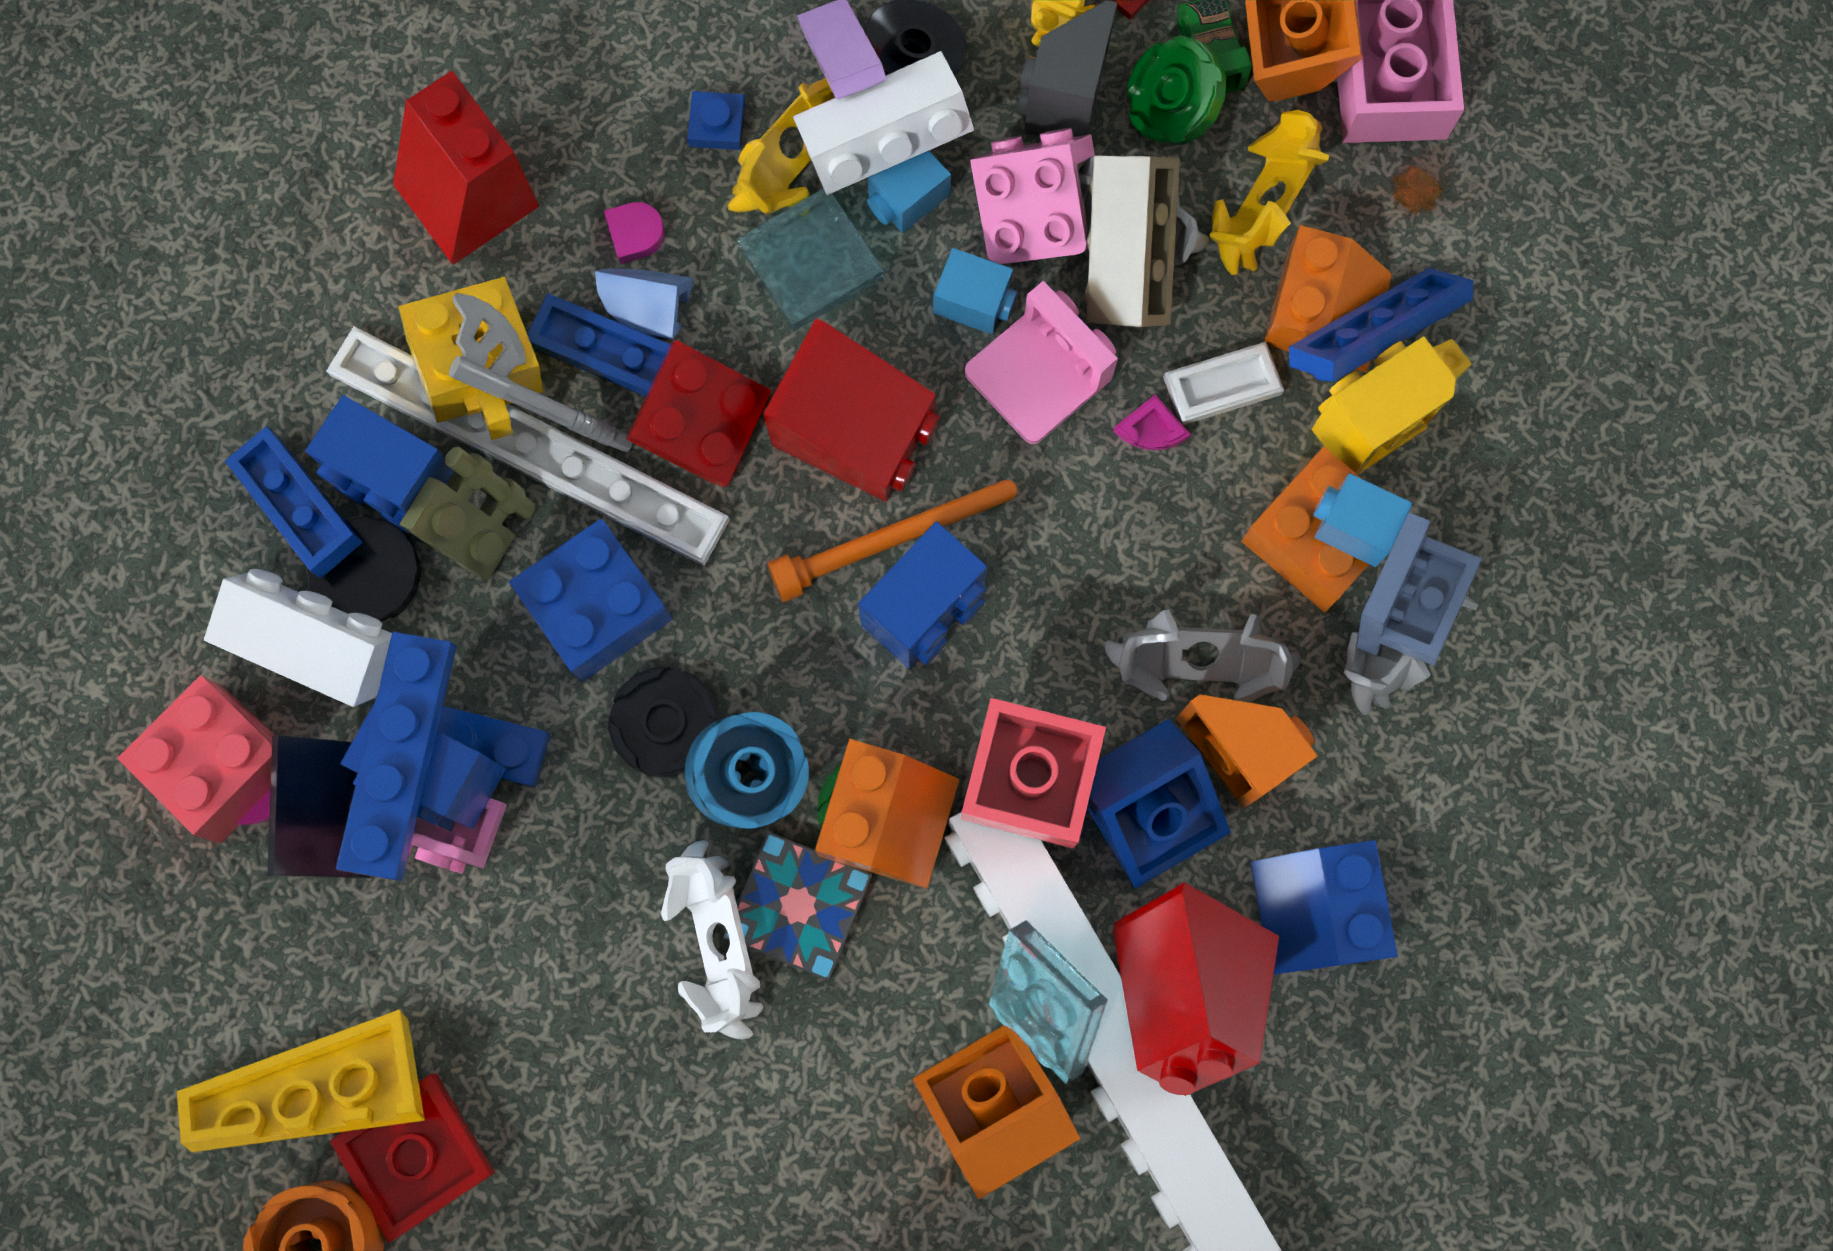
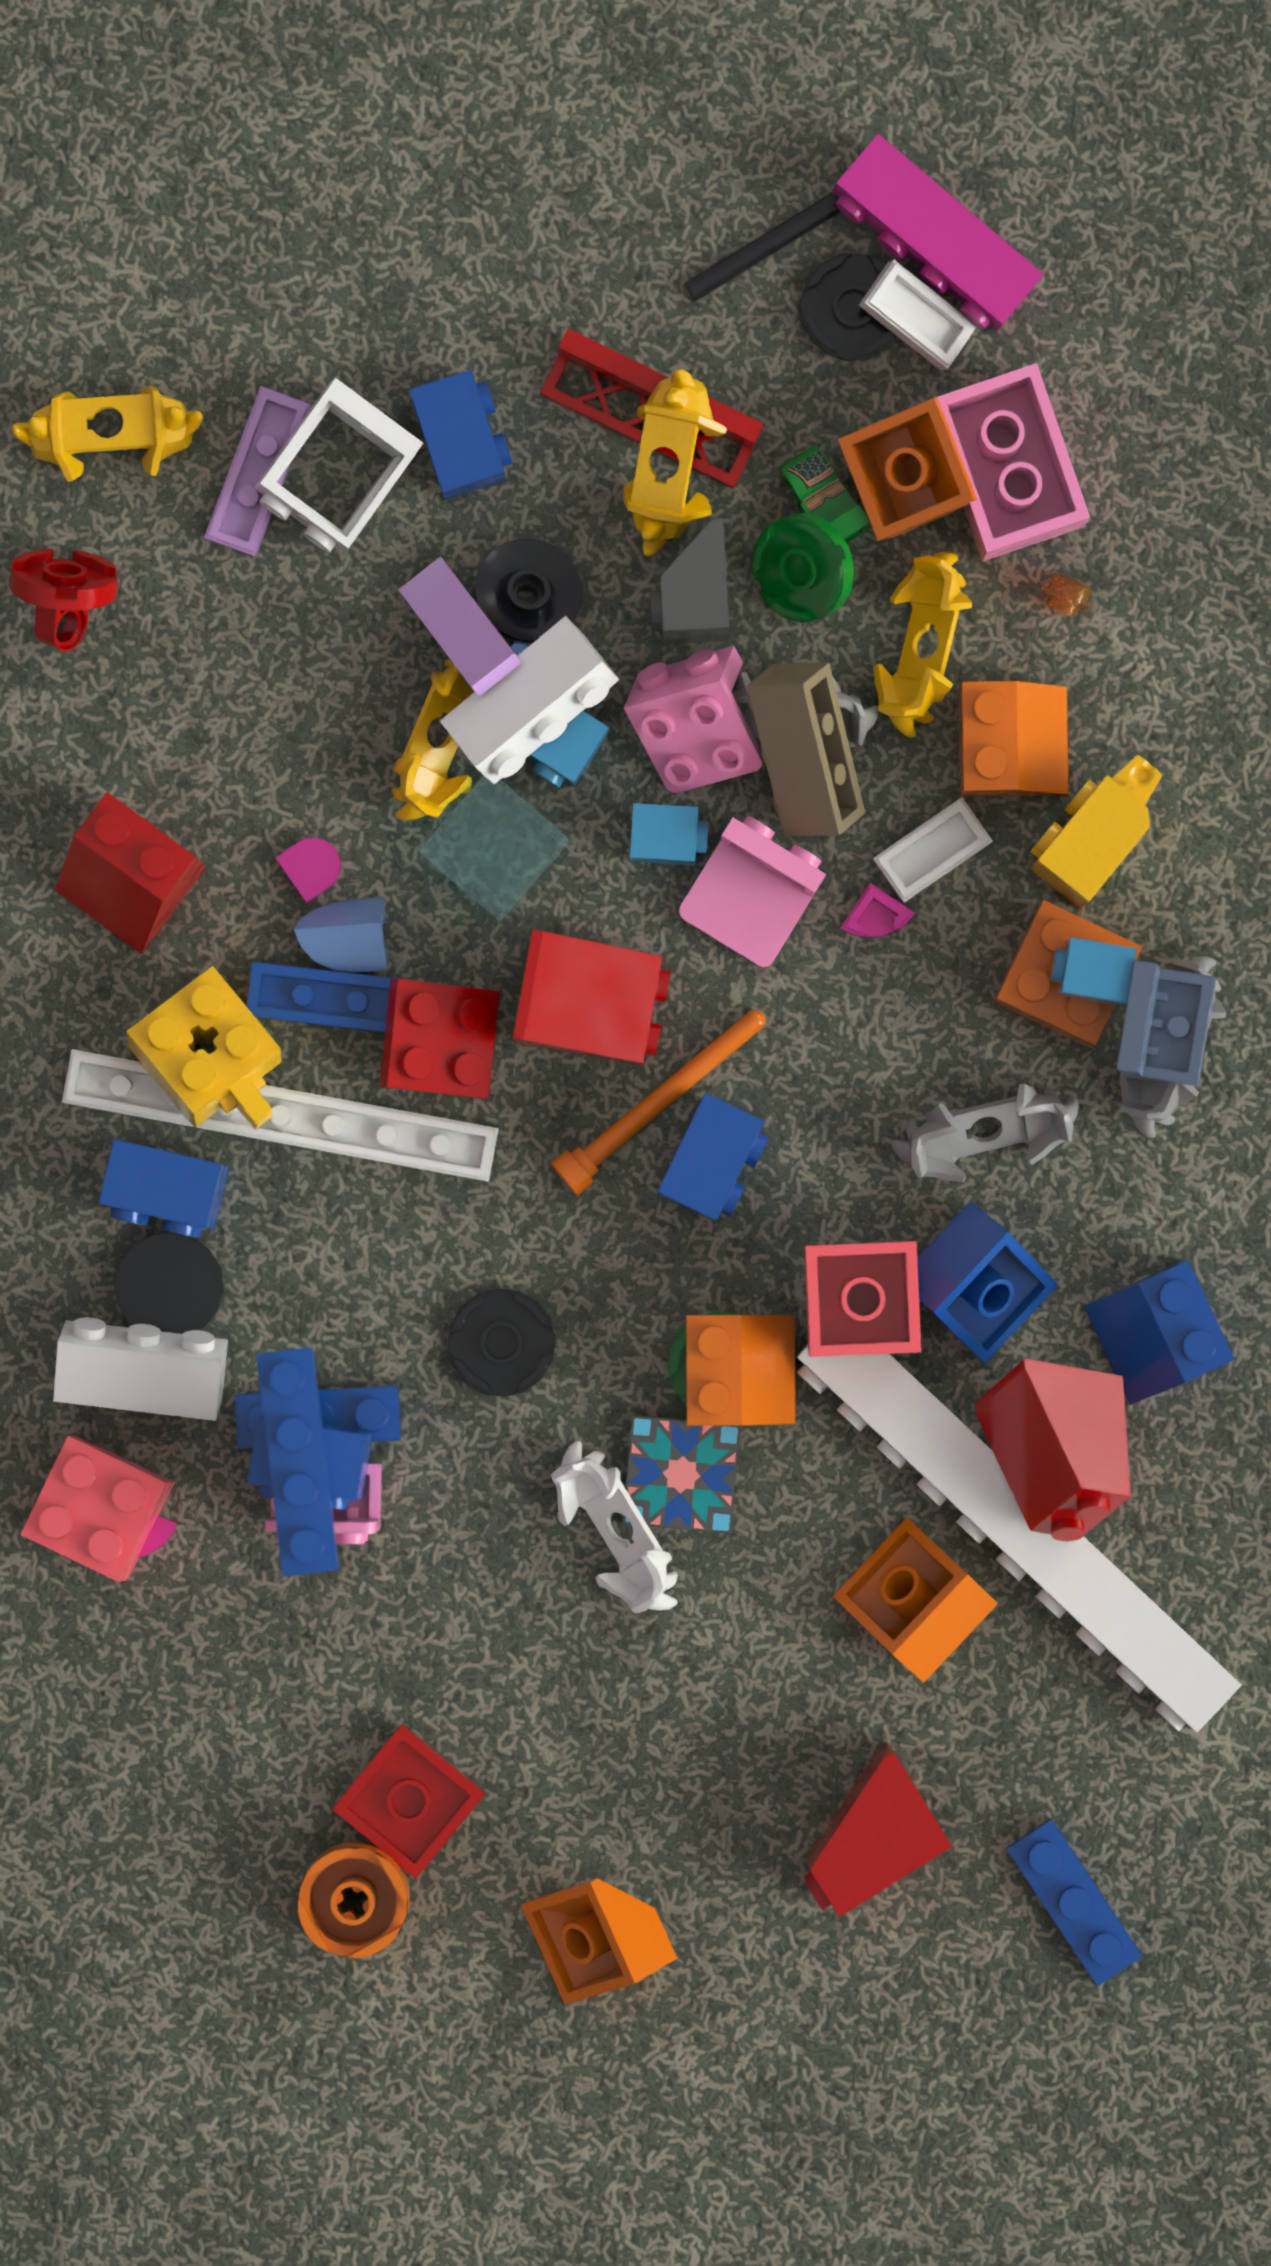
camera: 20 degrees left, 10 degrees up
(293, 502) = (83, 1242): blue plate -> none
(308, 807) = (217, 1521): black piece -> none
(319, 1088) = (305, 1766): yellow wing -> none
(456, 526) = (255, 1223): olive plate -> none
(494, 381) = (249, 1081): light grey piece -> none
(590, 600) = (398, 1252): blue brick -> none
(716, 120) = (353, 726): blue plate -> none
(775, 757) = (589, 1339): dark azure brick -> none
(1047, 1002) = (933, 1495): clear light blue plate -> none
(1247, 743) = (1053, 1208): orange slope -> none
(1380, 324) = (1067, 759): blue plate -> none

